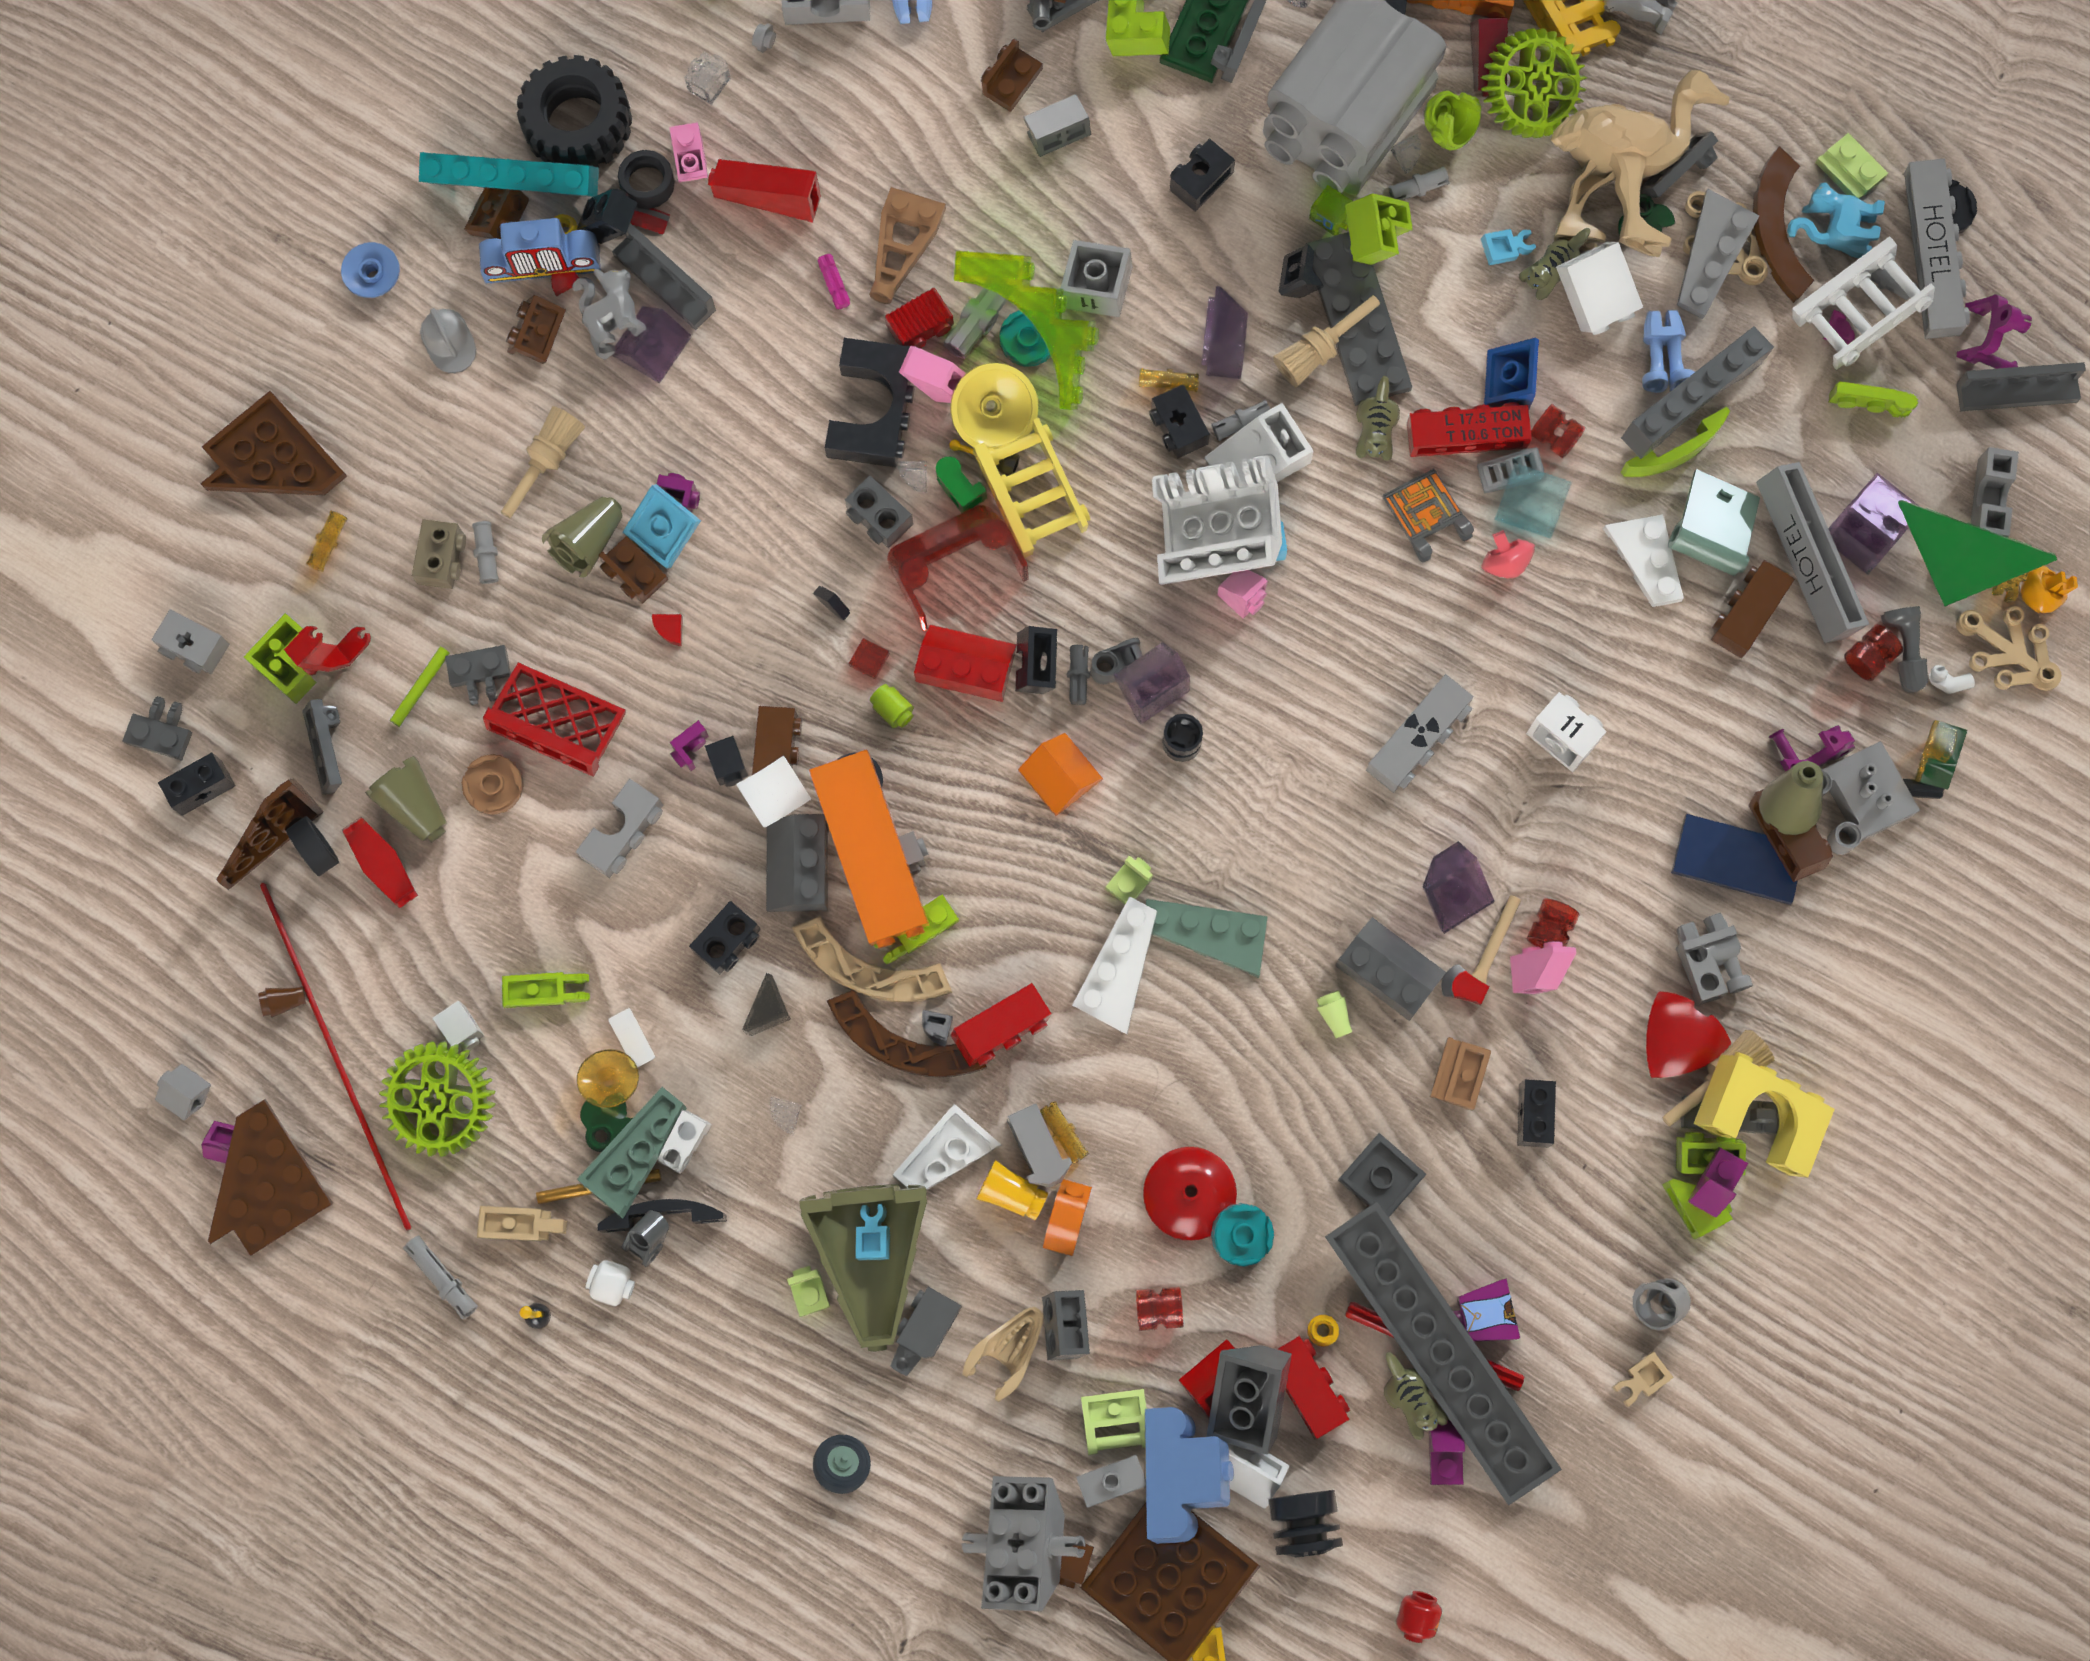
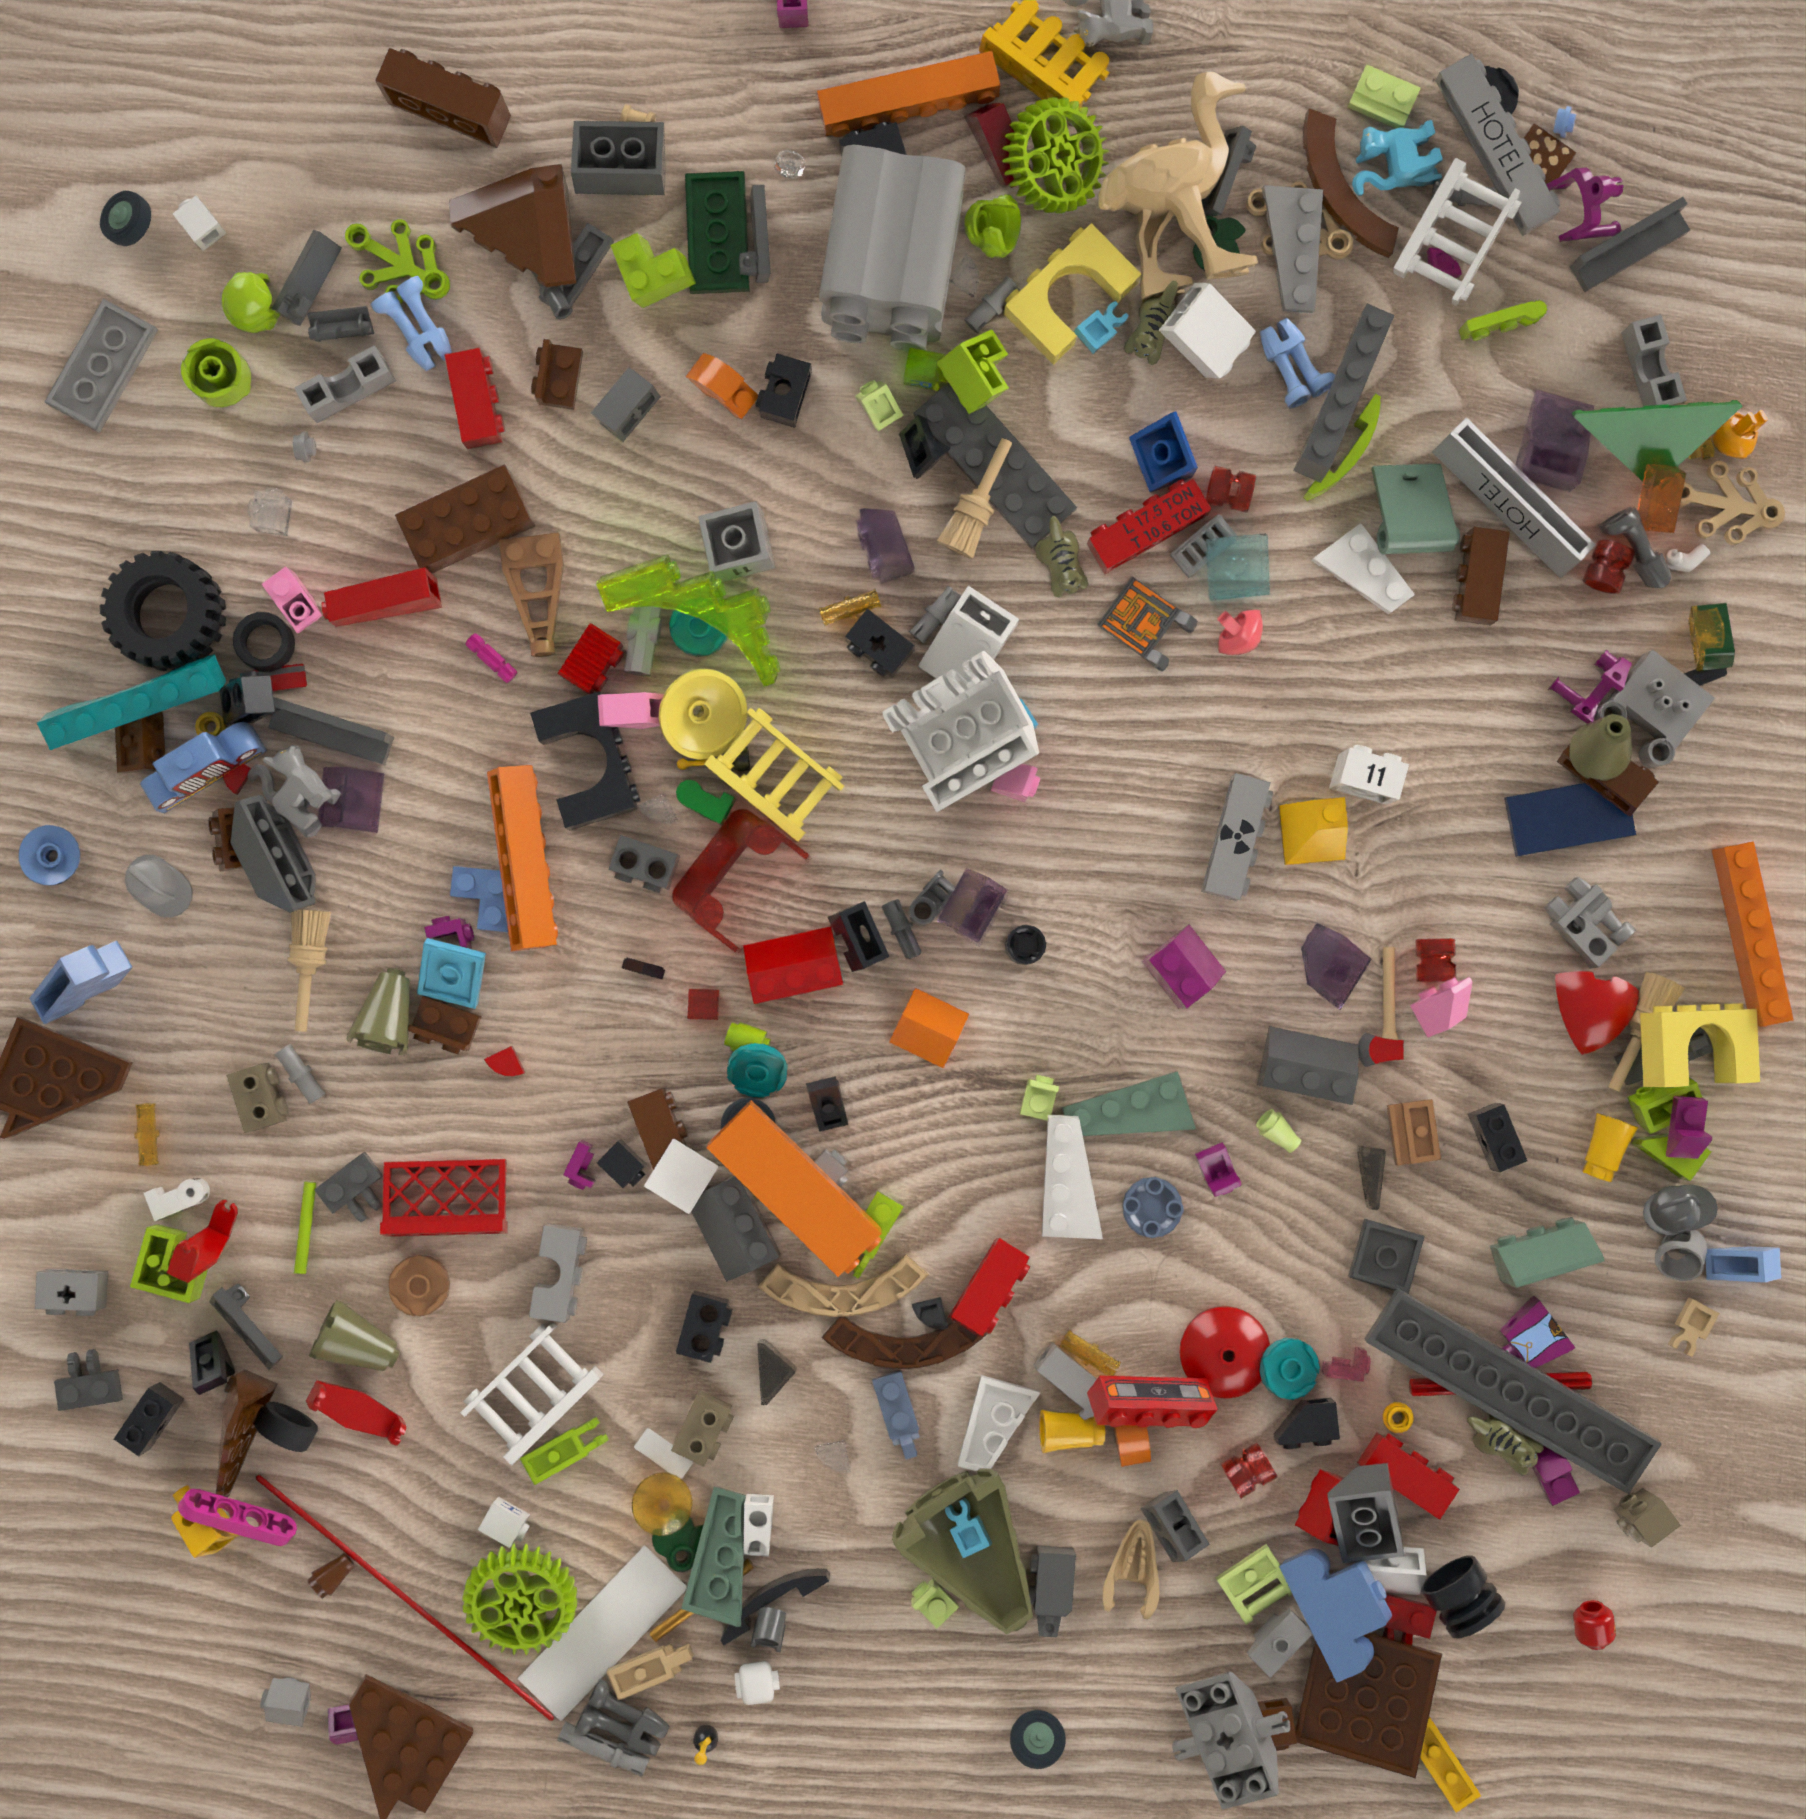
camera: 30 degrees left, 10 degrees up
(194, 897) = (199, 1538): none -> yellow torso
(205, 876) = (273, 1526): none -> dark pink beam
(275, 761) = (209, 1363): none -> black slope
(323, 609) = (187, 1195): none -> white leg
(341, 375) = (78, 979): none -> medium blue brick
(444, 1242) = (633, 1735): none -> dark grey piece
(493, 1173) = (603, 1633): none -> white sticker
(559, 352) = (272, 855): none -> dark grey wedge
(565, 943) = (539, 1421): none -> white fence
(678, 1029) = (702, 1427): none -> dark tan brick
(733, 474) = (487, 887): none -> medium blue plate
(774, 457) = (522, 857): none -> orange brick
(862, 1101) = (897, 1411): none -> sand blue hinge
(871, 156) = (465, 520): none -> reddish brown brick
(888, 734) = (757, 1070): none -> teal tile
(930, 62) = (474, 398): none -> red brick
(936, 793) = (827, 1103): none -> black slope
(1099, 1193) = (1151, 1401): none -> red brick
(1151, 144) = (722, 383): none -> orange brick
(1185, 1027) = (1152, 1207): none -> sand blue dish
(1239, 1292) = (1309, 1422): none -> black slope
(1242, 1522) = (1409, 1617): none -> red hinge
(1262, 1020) = (1218, 1170): none -> magenta bracket
(1278, 223) = (879, 404): none -> yellowish green bracket
(1292, 1258) = (1342, 1369): none -> clear pink bracket
(1316, 822) = (1184, 968): none -> magenta slope
(1405, 1086) = (1371, 1169): none -> clear smoke slope
(1494, 761) = (1314, 831): none -> yellow slope
(1514, 1532) = (1645, 1517): none -> dark tan brick
(1521, 179) = (1087, 255): none -> light yellow arch
(1532, 1238) = (1545, 1252): none -> sand green slope
(1637, 1171) = (1607, 1146): none -> yellow plant
(1679, 1262) = (1680, 1209): none -> dark grey piece
(1718, 1342) = (1743, 1264): none -> light blue slope
(1862, 1040) = (1752, 933): none -> orange brick
(1948, 612) = (1661, 497): none -> clear orange brick
(1979, 277) = (1548, 152): none -> reddish brown sticker
(2006, 257) = (1564, 121): none -> light blue plate

